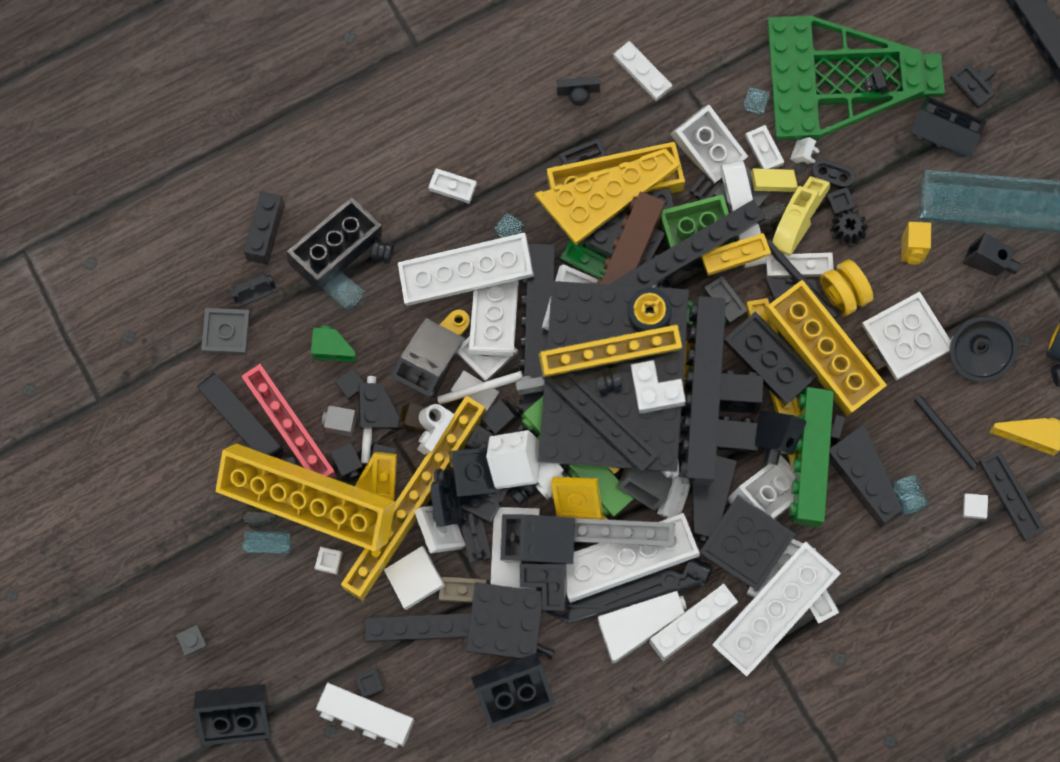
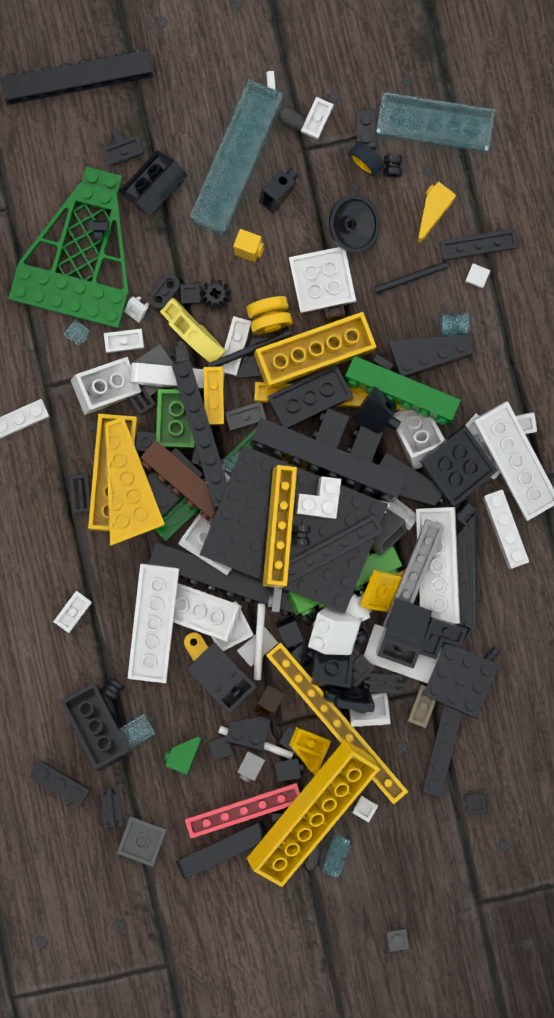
camera: 70 degrees left, 10 degrees up
(232, 714) = (469, 922): black slope -> none
(365, 715) = (502, 814): white brick -> none
(414, 577) = (402, 742): white tile -> none
(435, 429) = (286, 688): white plate -> none
(508, 226) = (124, 575): clear light blue plate -> none
(513, 690) = (519, 690): black brick -> none
(578, 89) = (20, 479): black tile -> none
(636, 624) = (494, 577): white slope -> none
(649, 298) = (251, 493): wheel -> none
(774, 180) = (154, 342): light yellow tile -> none

